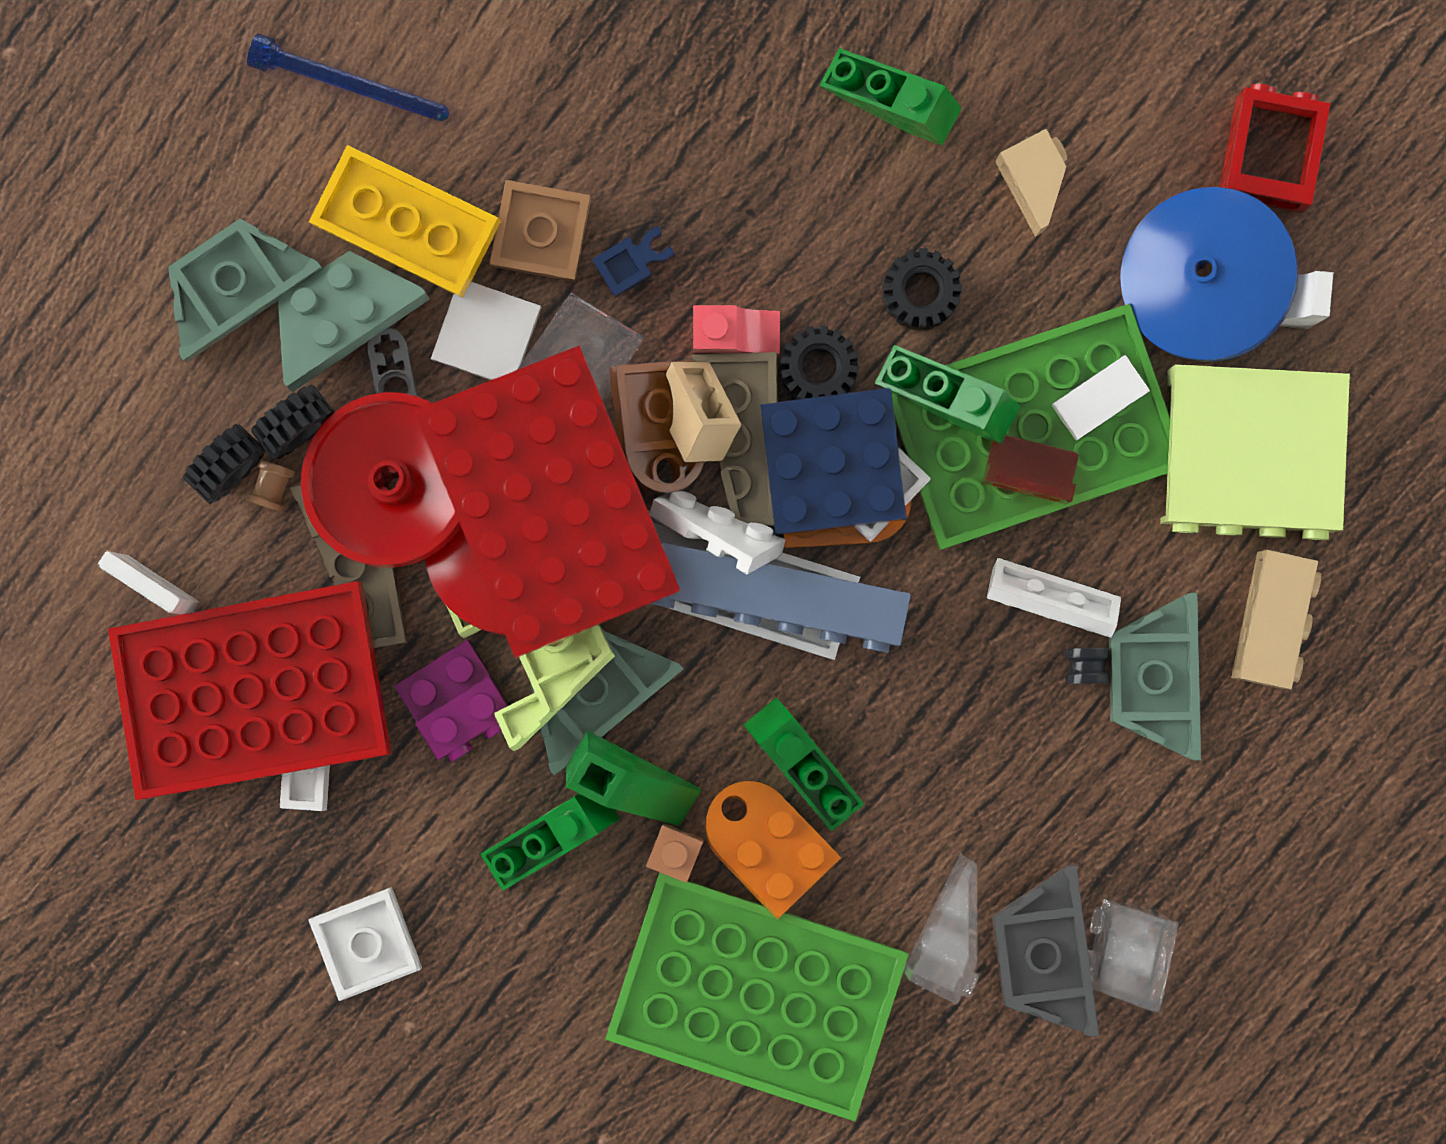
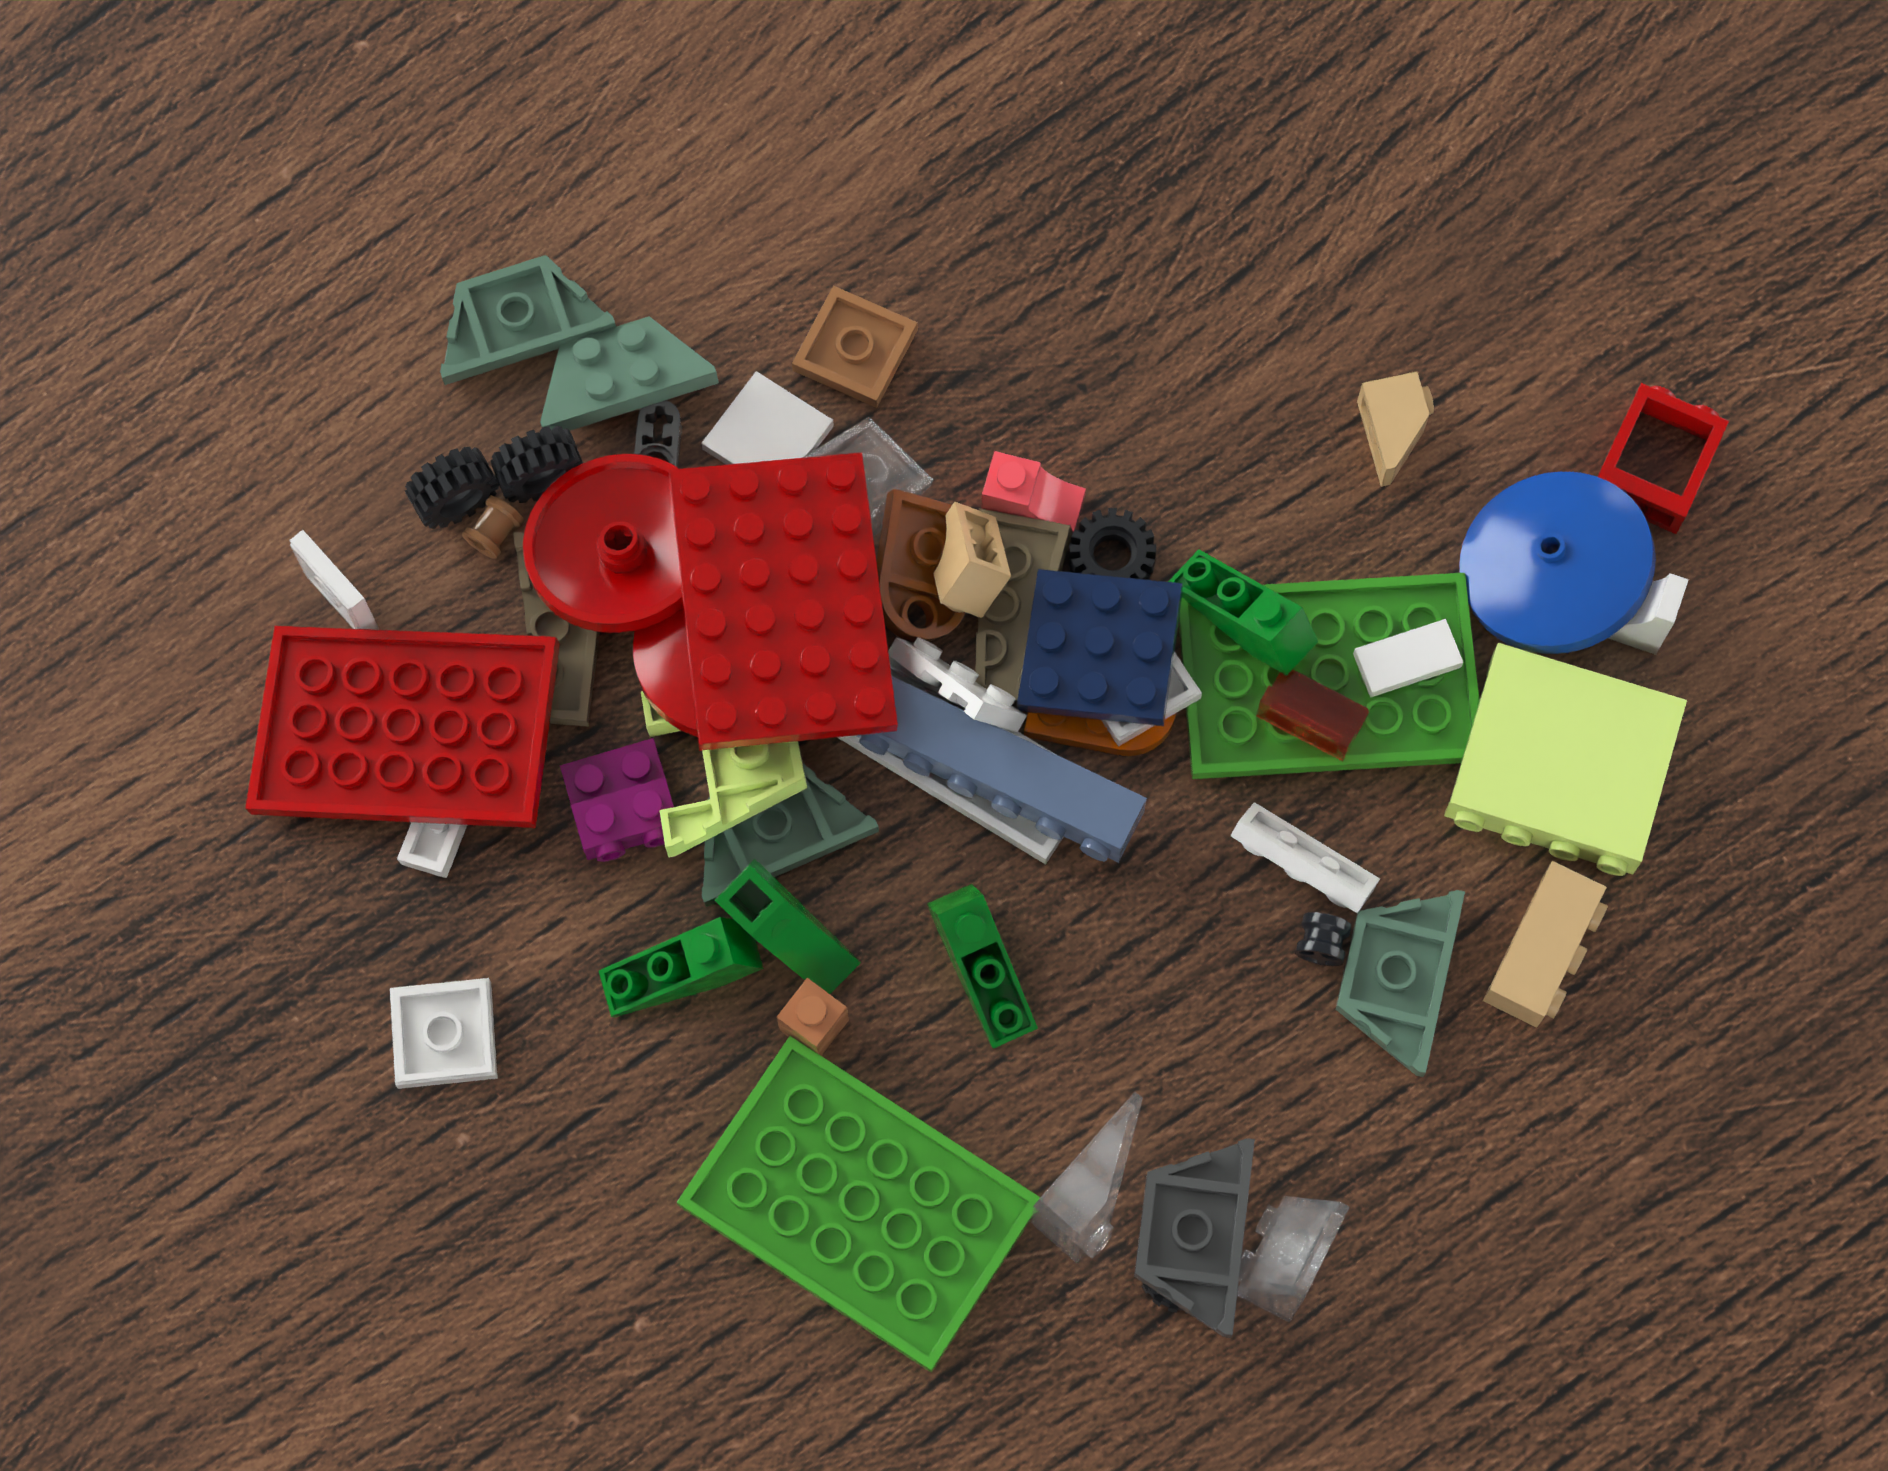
camera: 15 degrees right, 15 degrees down
(267, 54) = (623, 107): clear blue piece -> none
(405, 221) = (716, 300): yellow plate -> none
(627, 264) = (936, 403): dark blue plate -> none
(770, 847) = (919, 1042): orange plate -> none
(893, 95) = (1266, 306): green slope -> none
(921, 263) = (1247, 478): black tyre -> none

